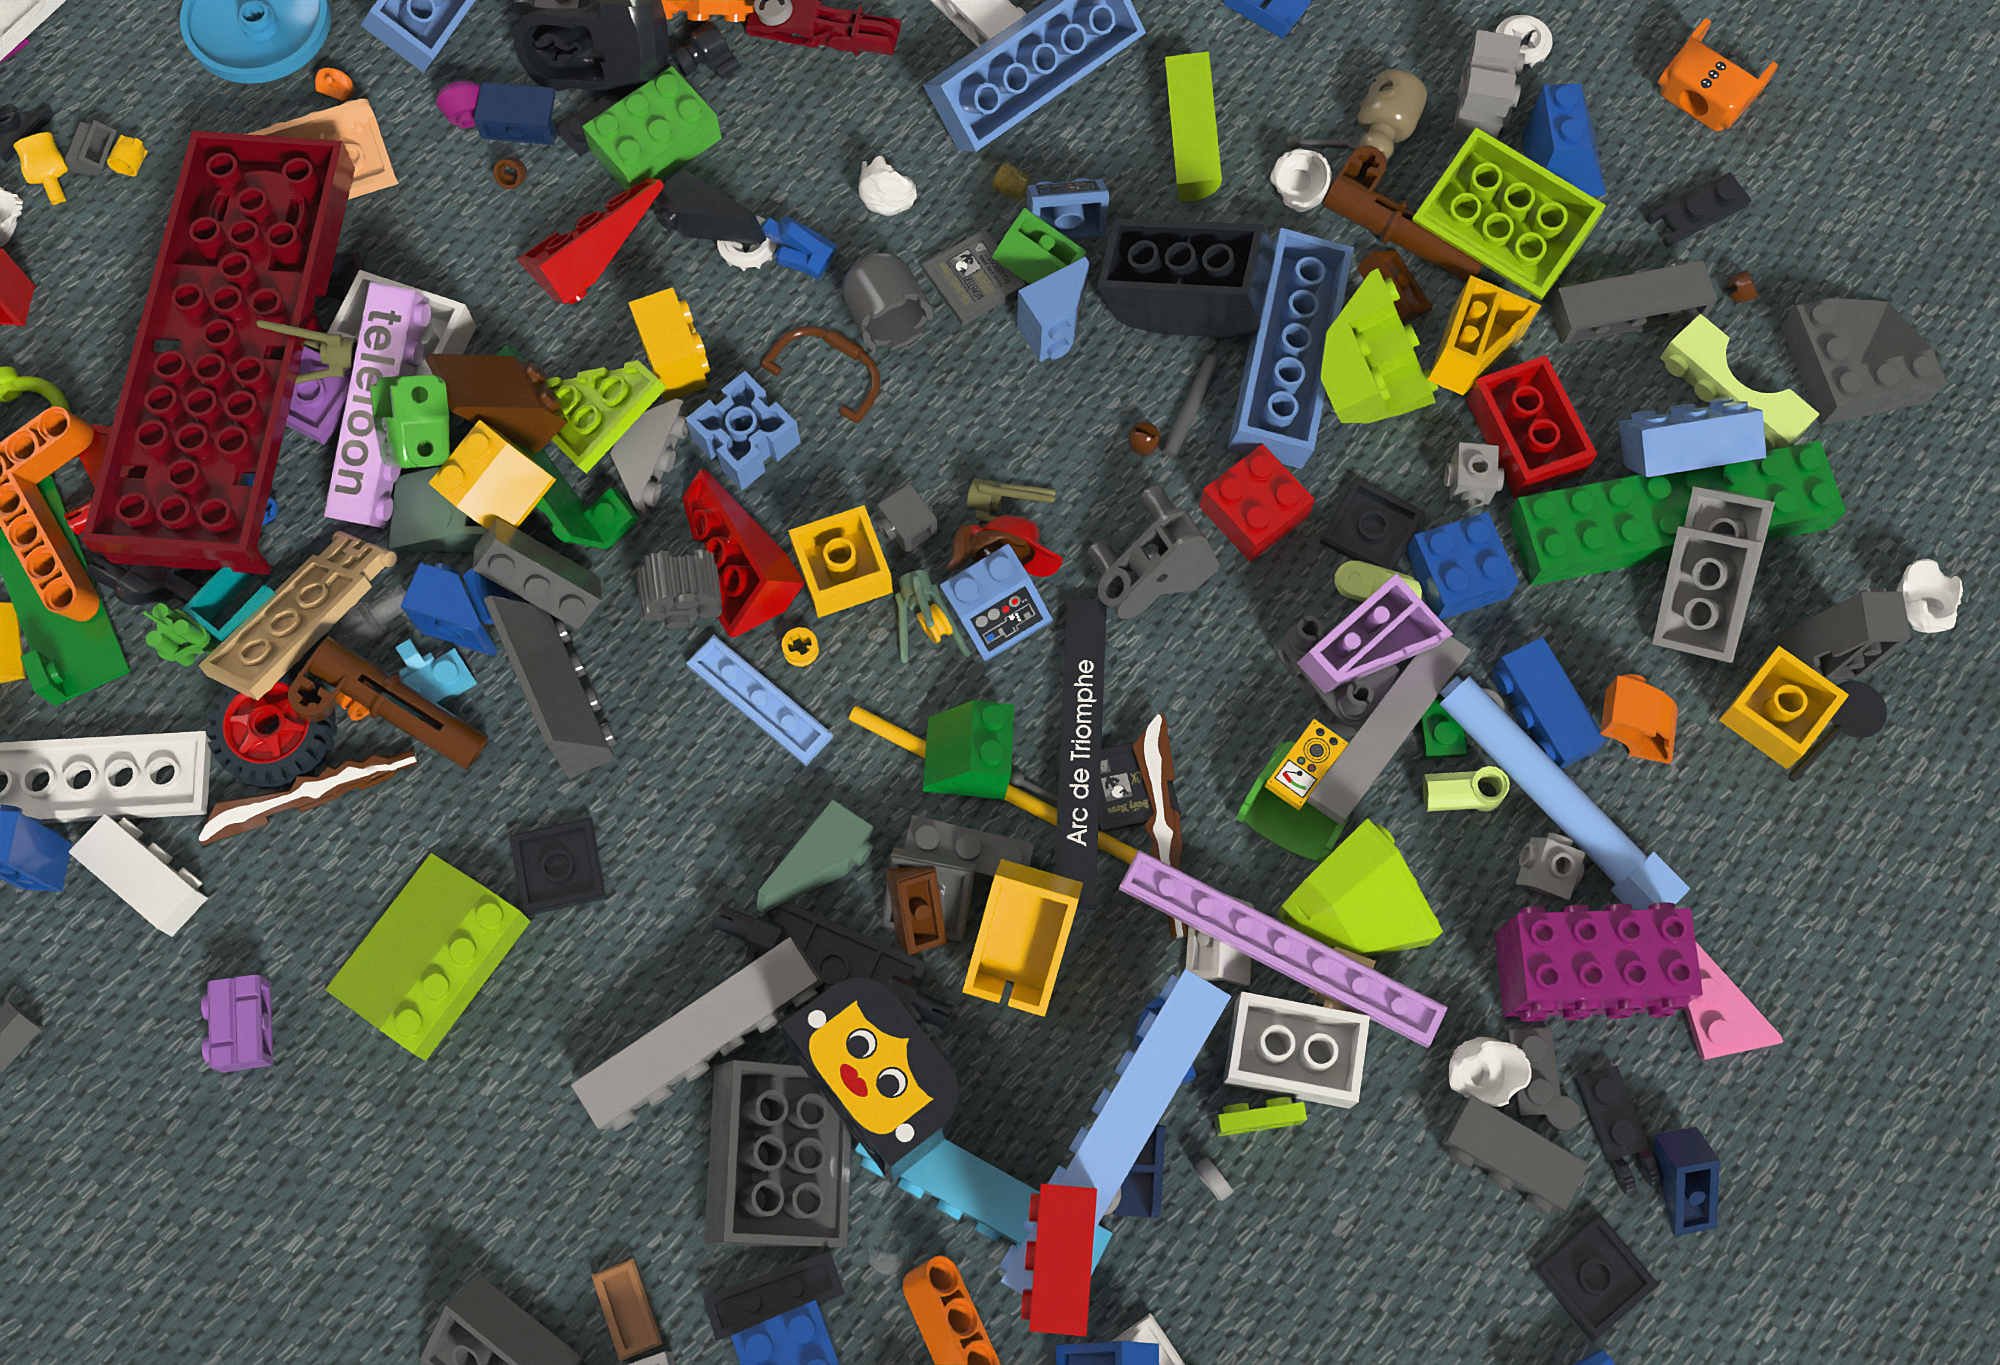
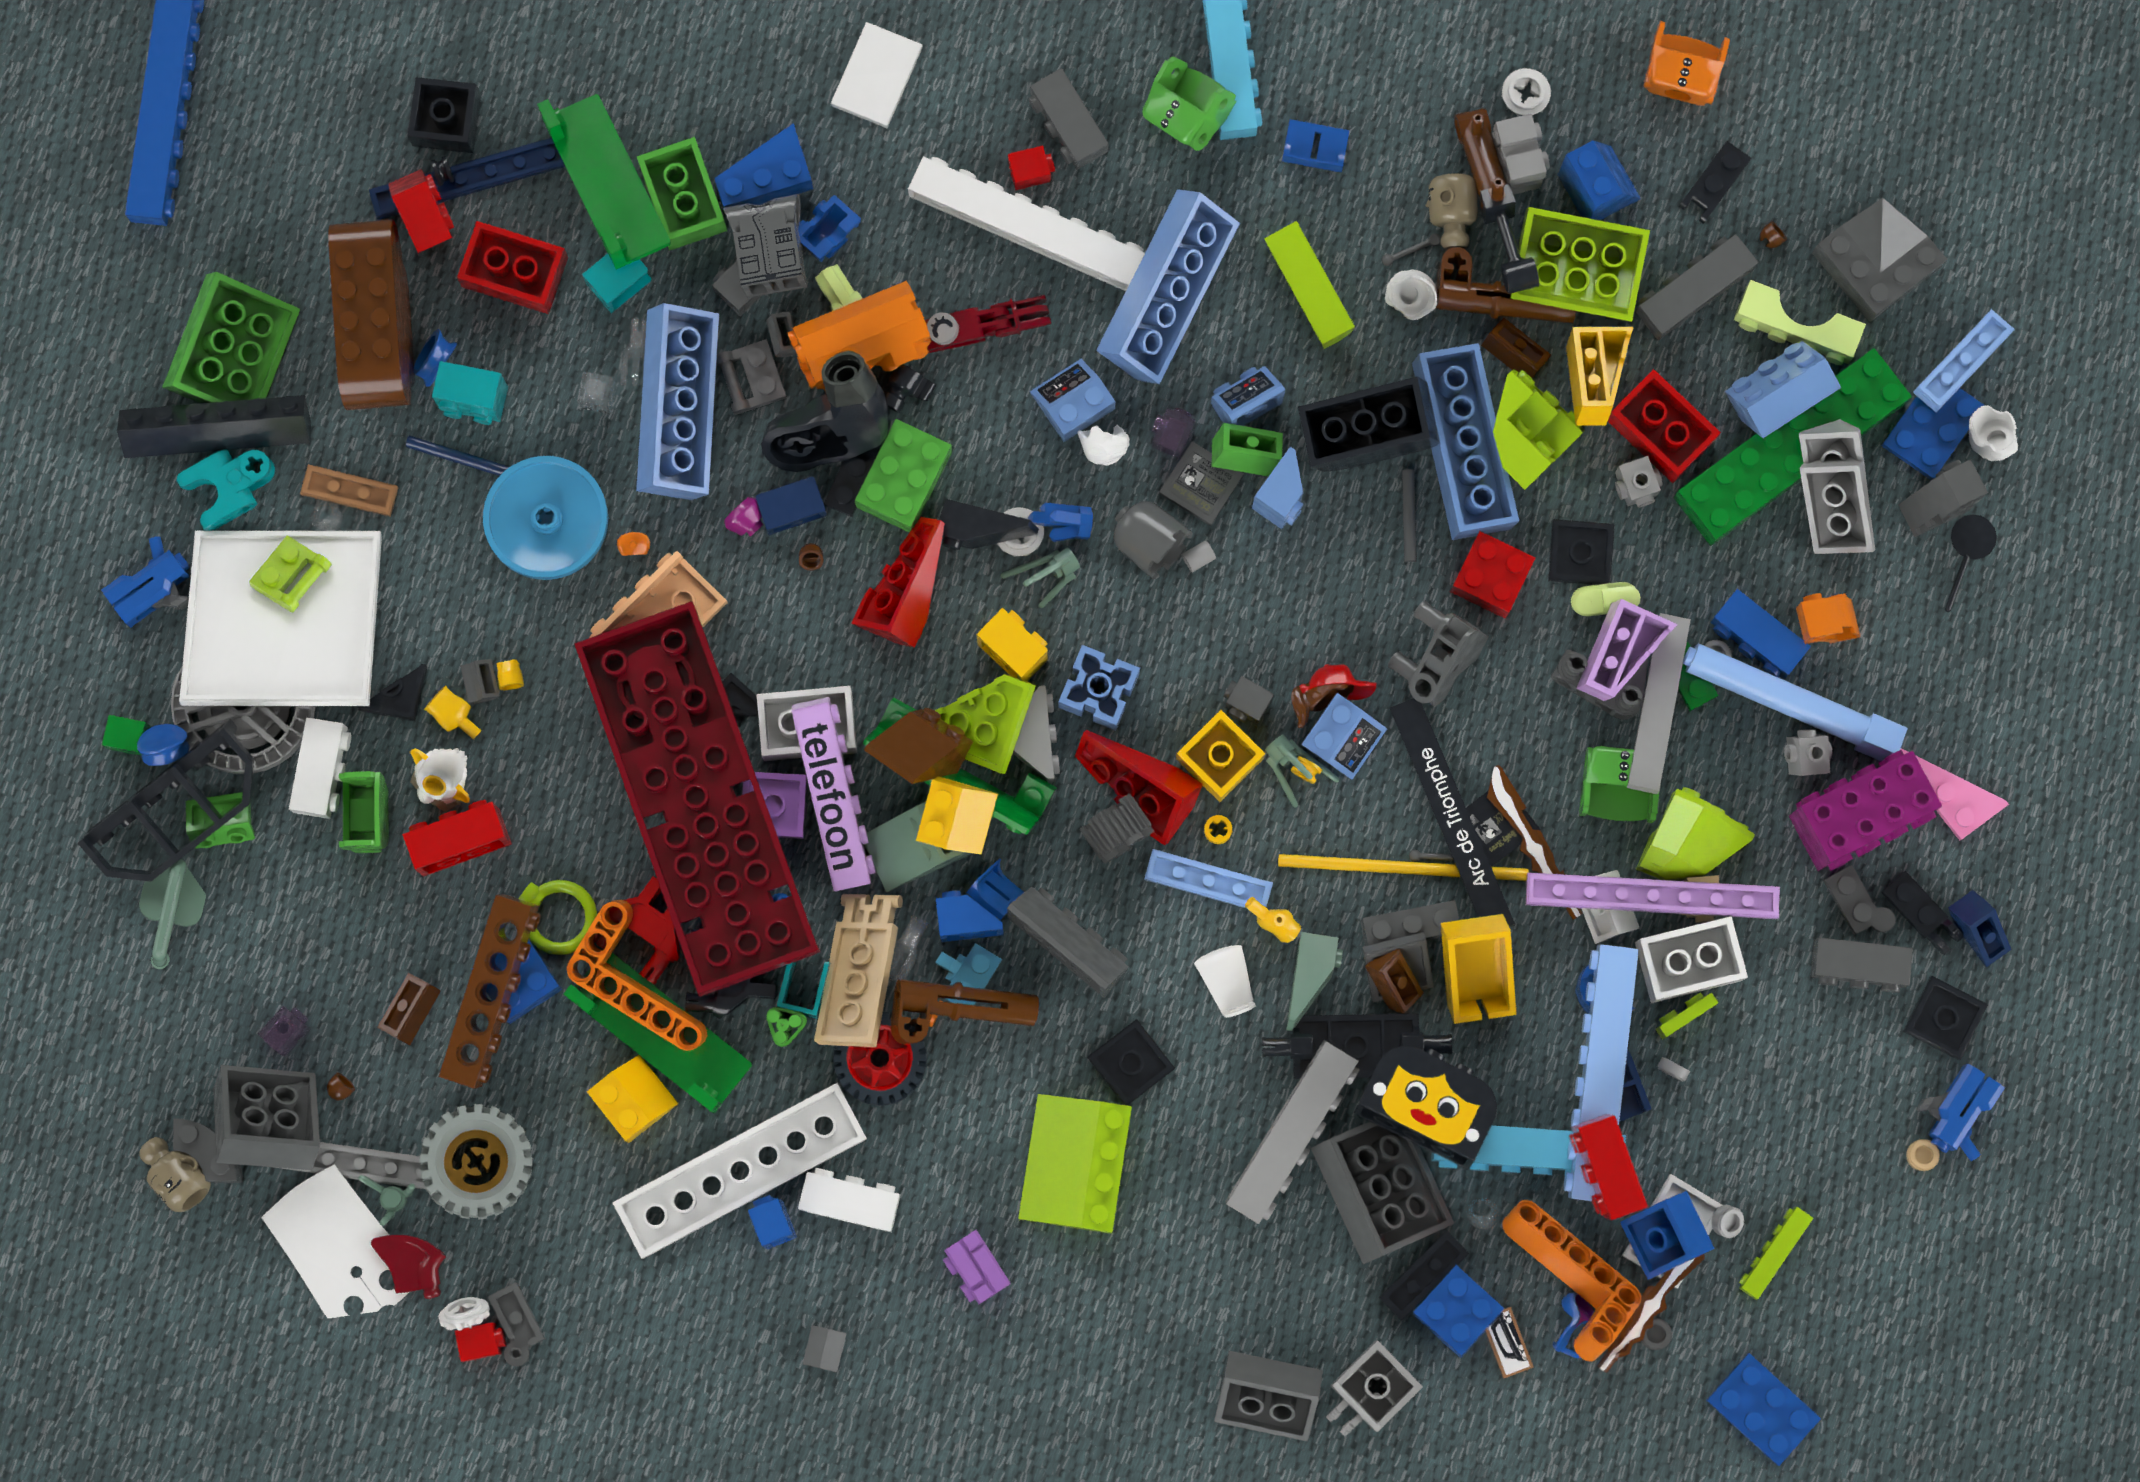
camera: 25 degrees left, 10 degrees up
(307, 792) = (929, 1092): reddish brown sword -> none
(334, 350) = (782, 767): olive plant -> none
(411, 420) = (880, 799): bright green piece -> none
(537, 573) = (1016, 866): dark grey brick -> none
(627, 1309) = (1332, 1328): medium nougat tile -> none
(722, 820) = (1227, 979): none -> white piece
(774, 291) = (1060, 564): none -> sand green plant
(809, 775) = (1276, 921): none -> yellow piece
(840, 343) = (1129, 582): reddish brown piece -> none
(878, 132) = (1073, 399): none -> medium blue slope
(931, 347) = (1198, 556): none -> light grey hinge
(968, 209) = (1173, 431): none -> clear purple brick
(970, 750) = (1377, 852): green slope -> none
(989, 496) = (1297, 653): olive plant -> none
(1011, 181) = (1193, 392): clear yellow hose -> none
(1142, 443) = (1387, 563): reddish brown hinge -> none
(1306, 764) = (1615, 761): yellow tile -> none
(1442, 114) = (1495, 195): none -> piece
(1461, 790) = (1725, 726): yellowish green piece -> none
(1462, 566) = (1658, 557): blue brick -> none
(1489, 1070) = (1823, 915): white hair -> none
(1783, 707) = (1922, 564): yellow brick -> none
(1853, 558) = (1928, 437): none -> blue plate
(1921, 505) = (1963, 360): none -> light blue tile

